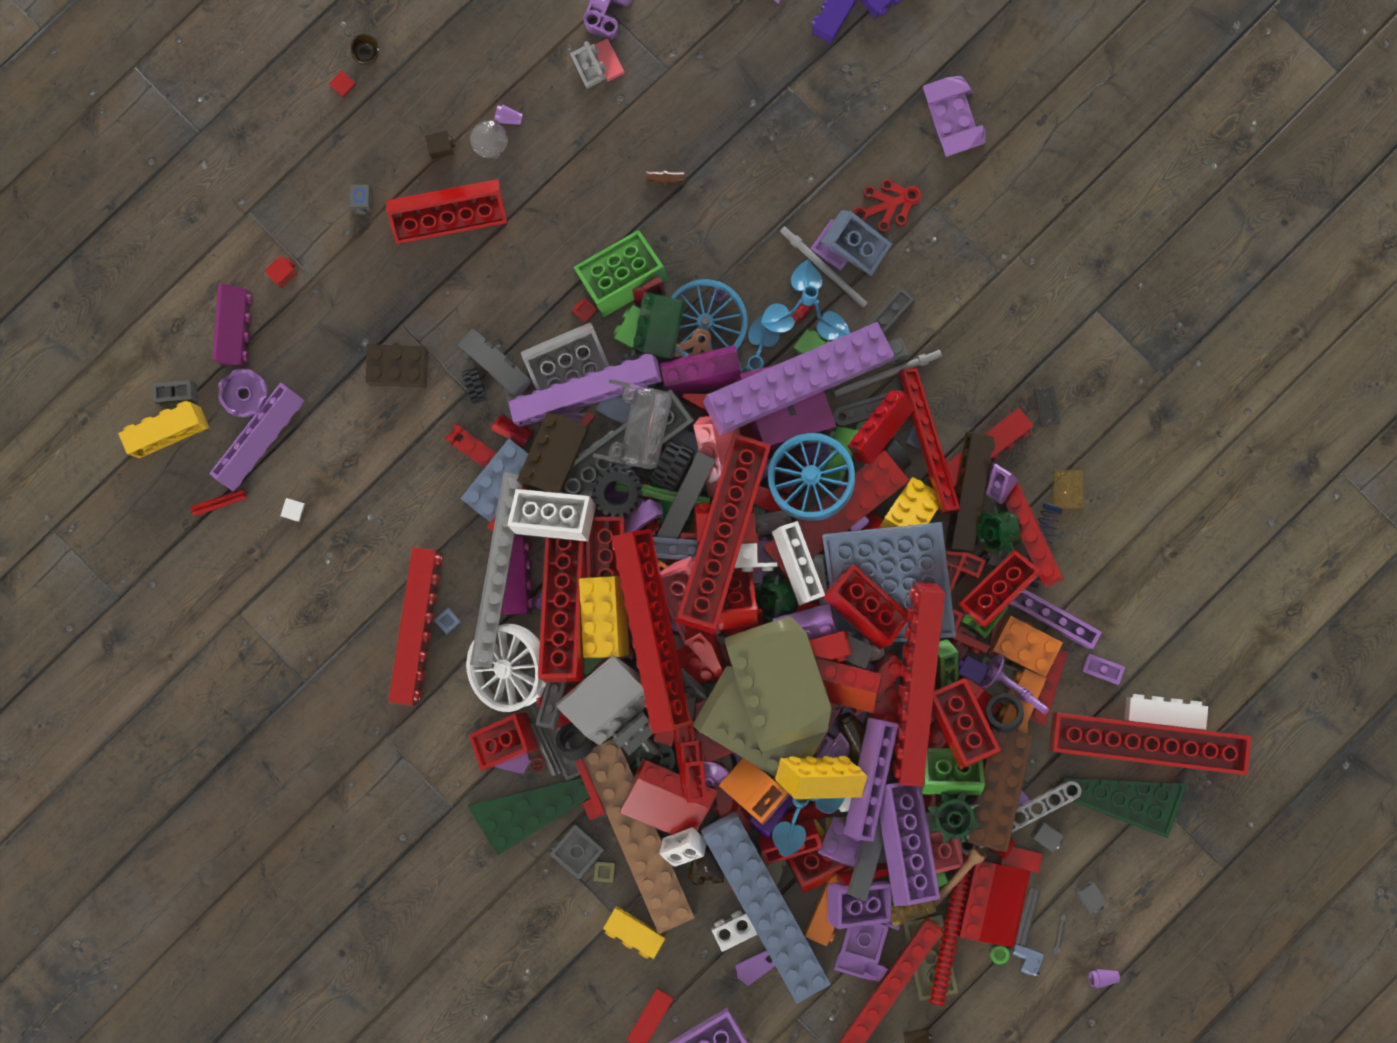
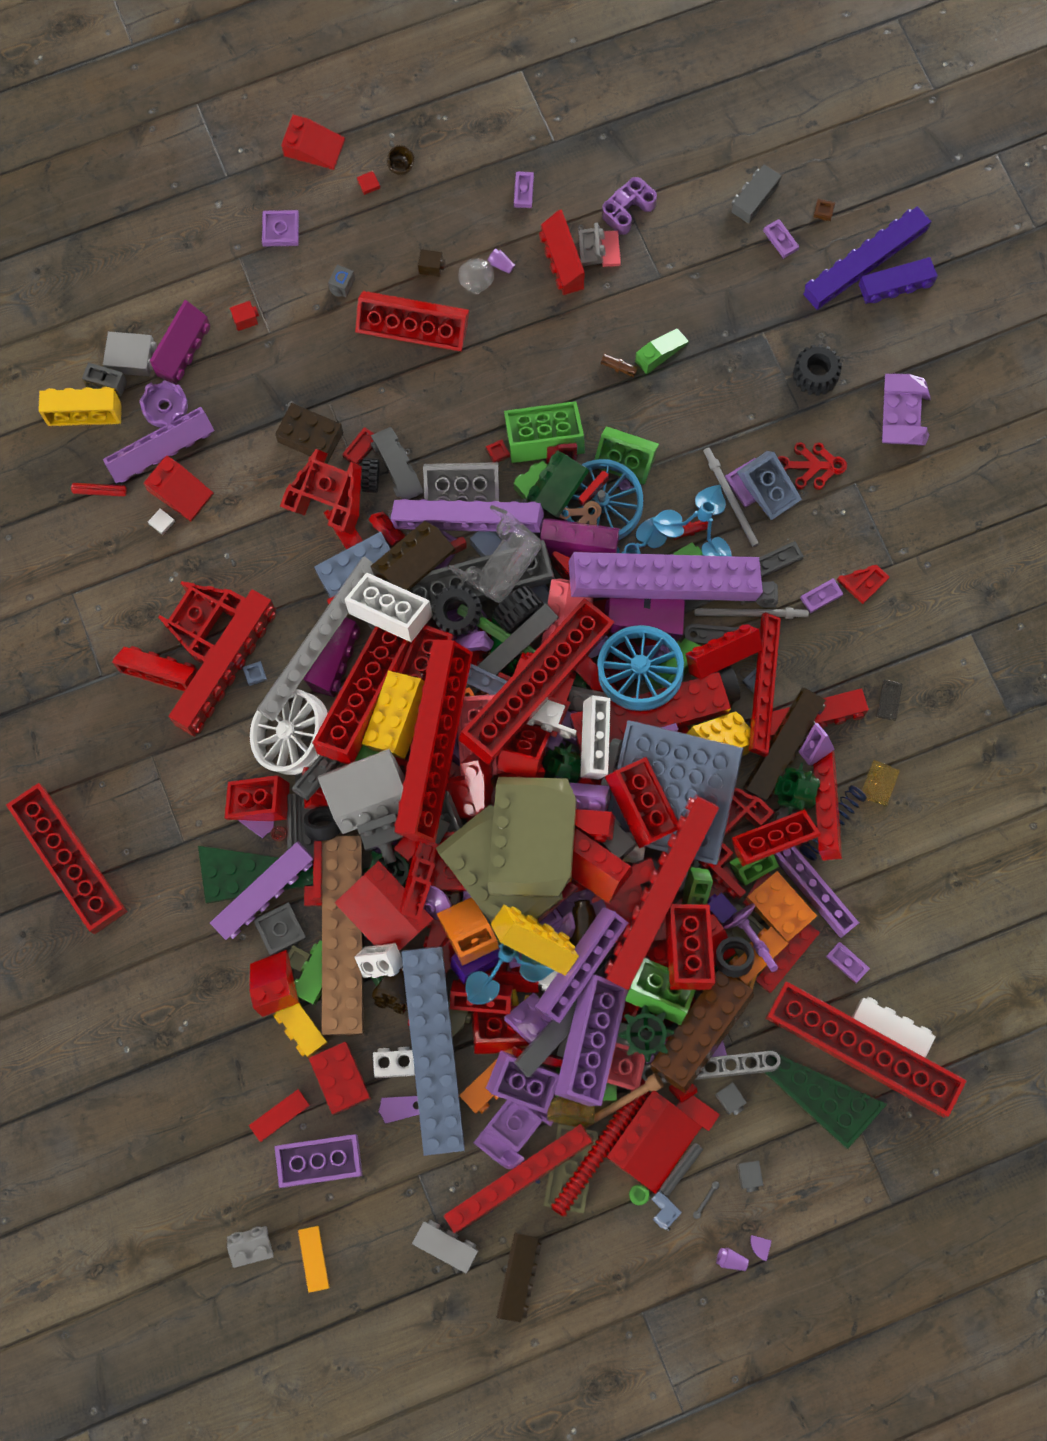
camera: 25 degrees right, 10 degrees down
(186, 355) = (129, 353): none -> light grey brick
(269, 65) = (312, 143): none -> red slope
(276, 166) = (280, 228): none -> medium lavender tile
(295, 471) = (178, 488): none -> red slope
(350, 869) = (66, 858): none -> red brick
(353, 656) = (154, 668): none -> red slope
(370, 589) = (197, 616): none -> red wedge
(441, 416) = (329, 486): none -> red wedge
(450, 359) = (359, 447): none -> red tile
(498, 31) = (523, 189): none -> medium lavender plate
(546, 825) = (262, 890): none -> medium lavender brick
(565, 85) = (563, 253): none -> red slope
(593, 906) = (272, 984): none -> red slope
(627, 891) = (310, 983): none -> bright green slope
(691, 964) = (339, 1078): none -> red brick
(694, 315) = (593, 488): none -> red tile
(698, 145) = (660, 350): none -> bright green slope
(708, 262) = (628, 450): none -> bright green slope
(861, 93) = (817, 356): none -> black tyre
(946, 331) = (821, 595): none -> medium lavender plate
(981, 302) = (864, 583): none -> red wing
(1123, 955) = (760, 1246): none -> medium lavender tile

